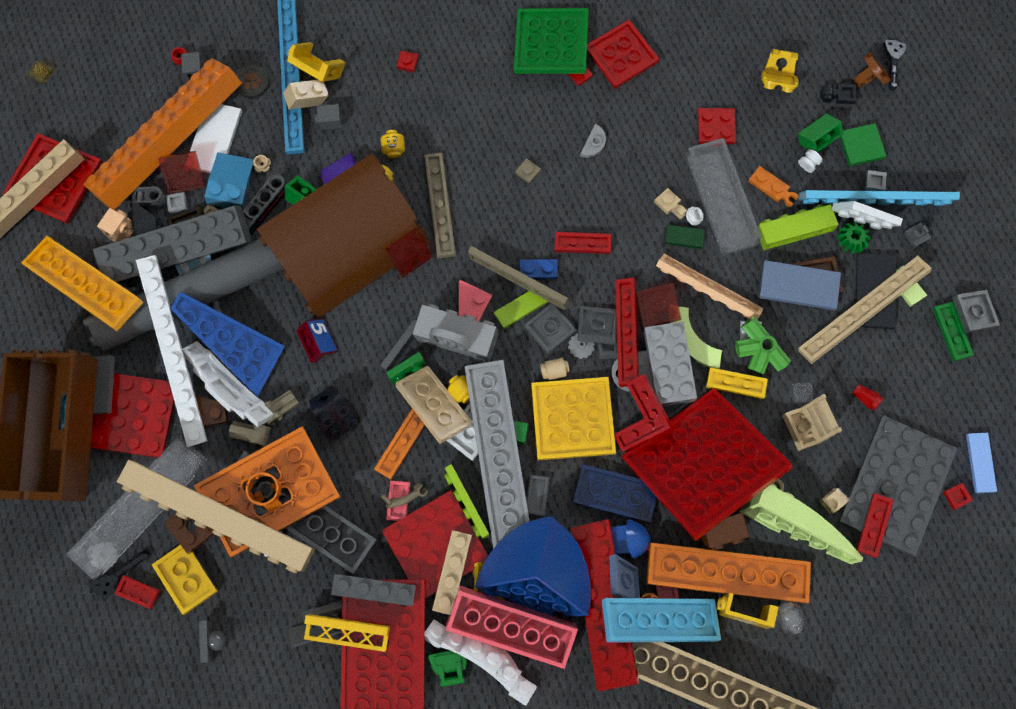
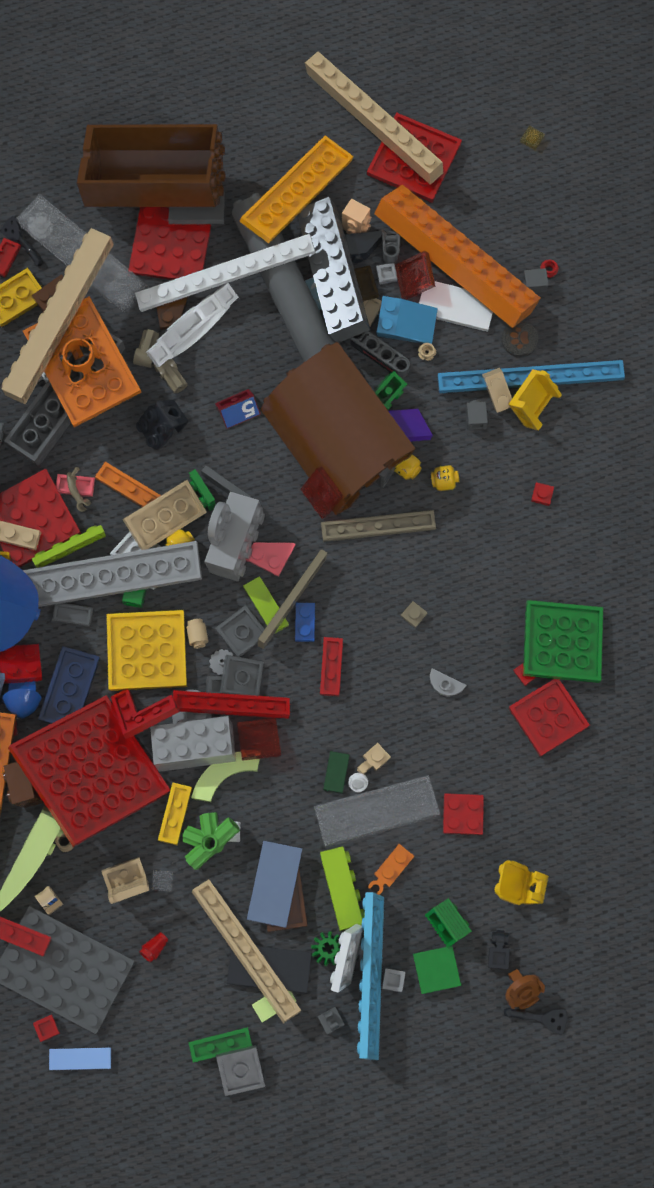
camera: 85 degrees right, 0 degrees up
(236, 345) = (230, 333): blue wing -> none
(713, 289) = (278, 793): light nougat plate -> none
(810, 160) = (418, 910): white wheel -> none

